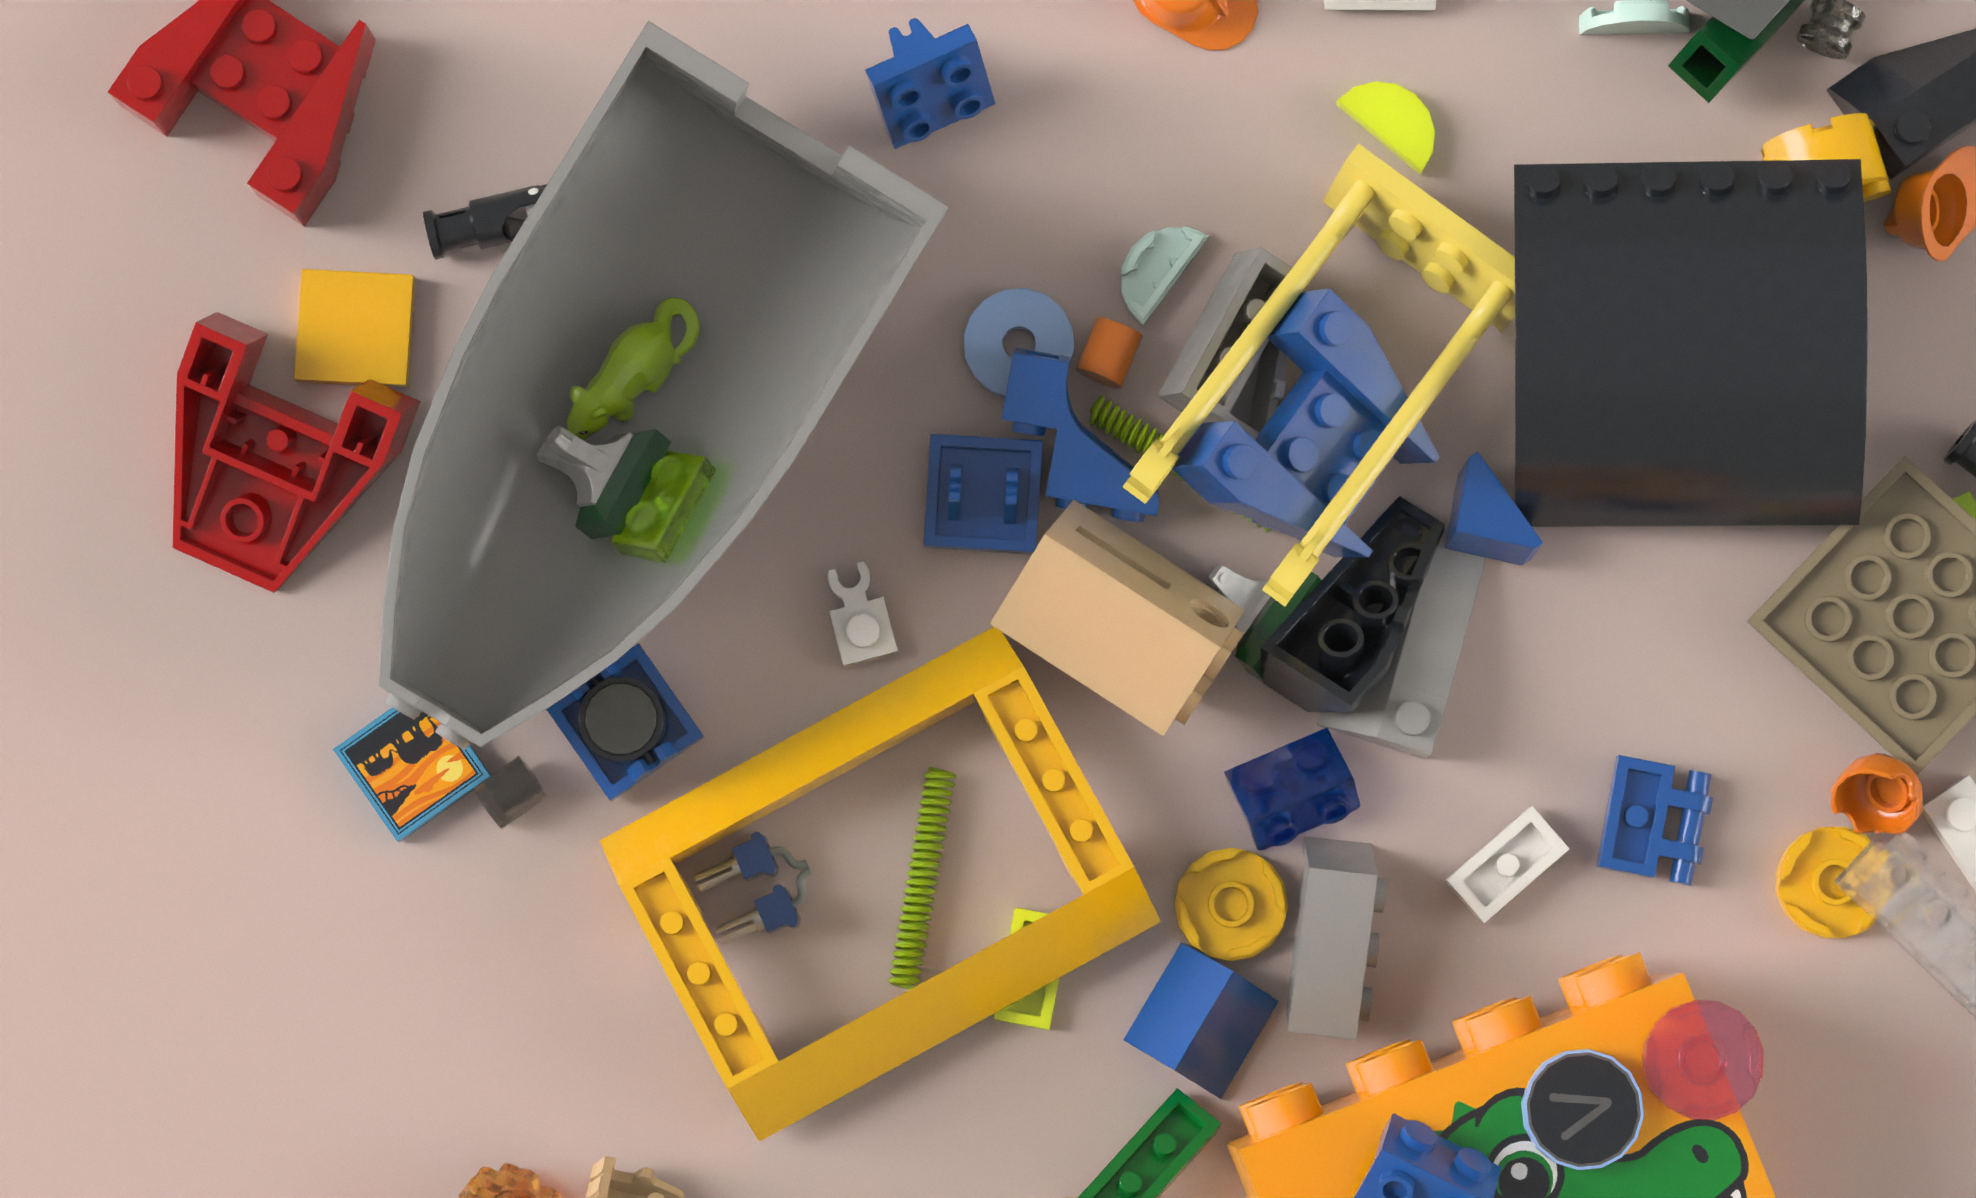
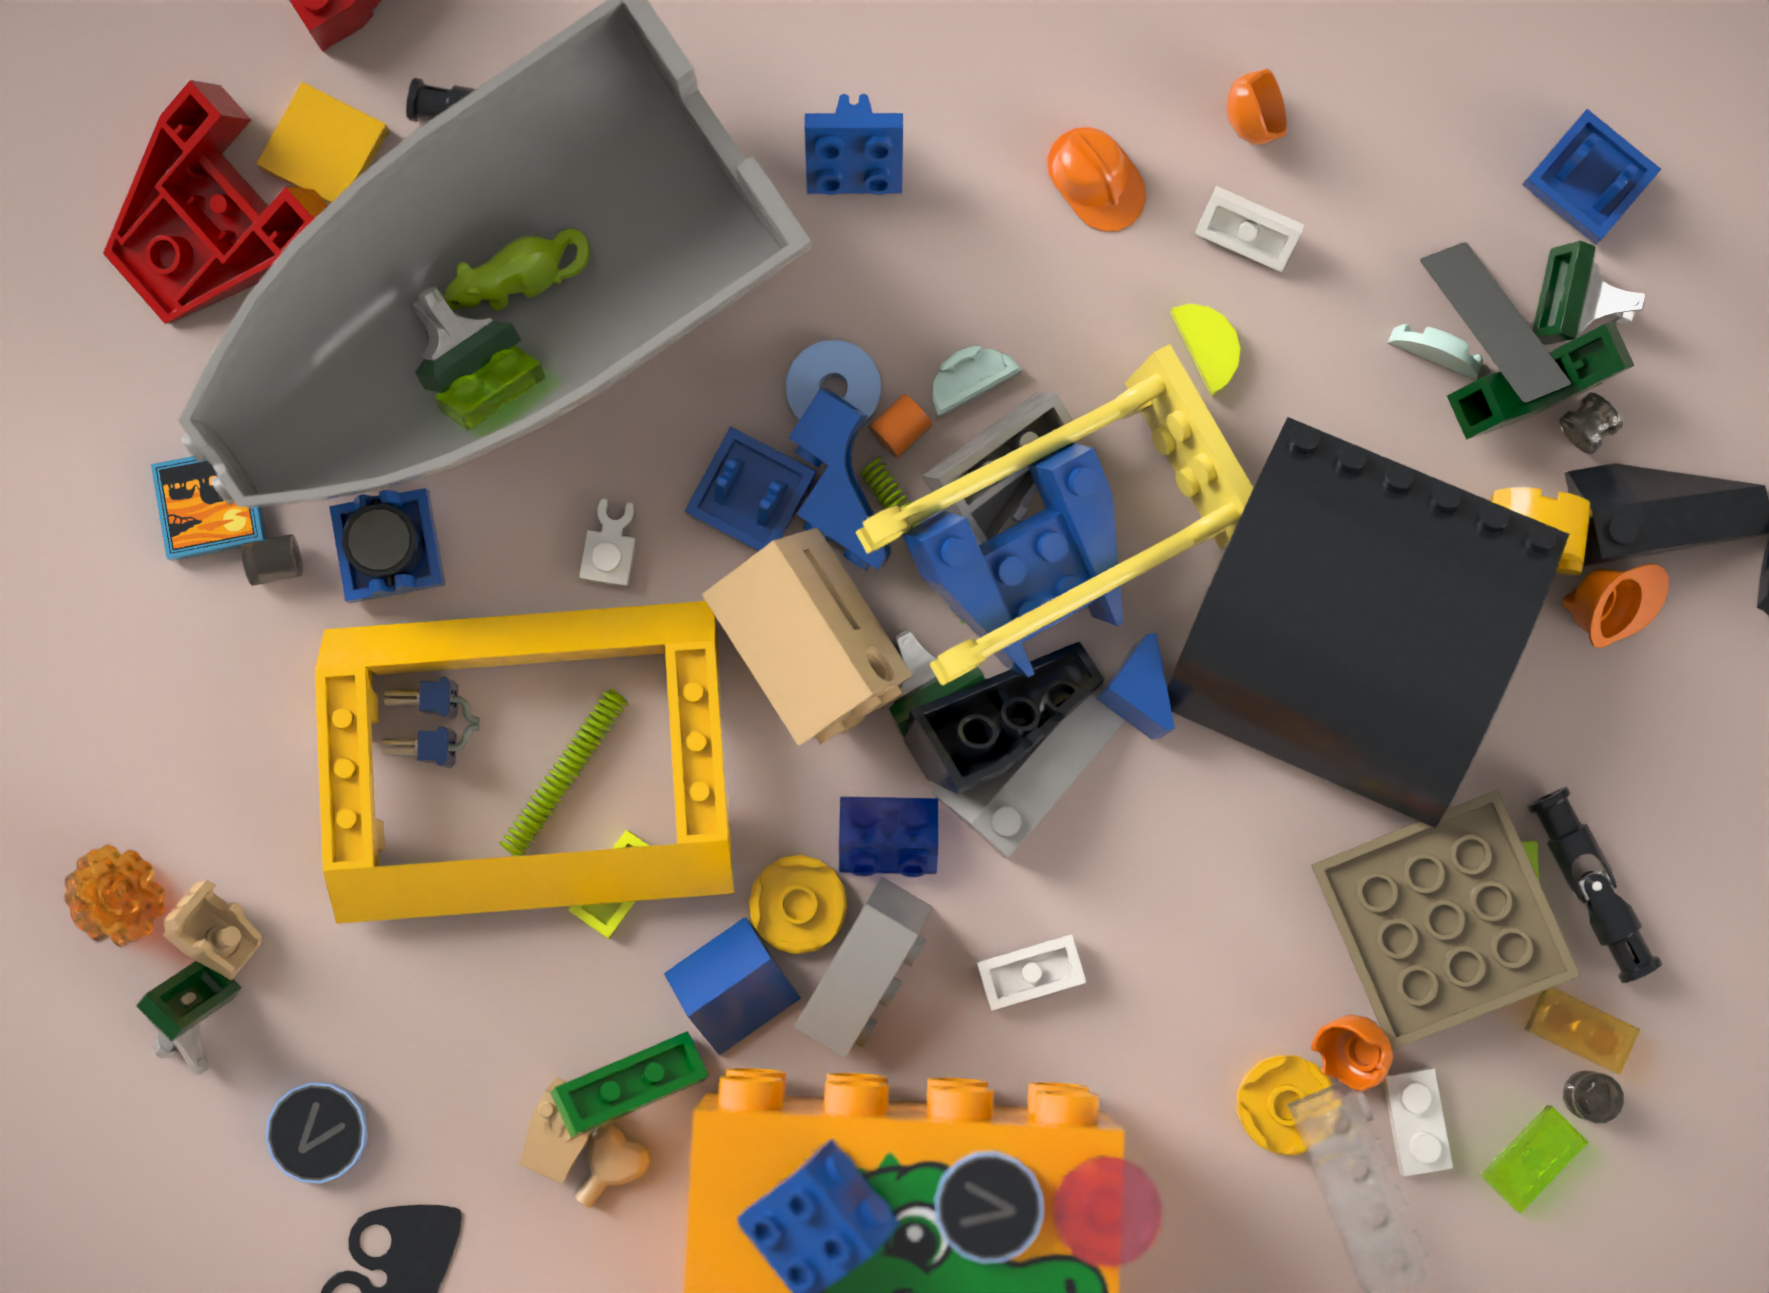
camera: 20 degrees right, 0 degrees up
(1637, 819) = (1153, 980): blue plate -> none

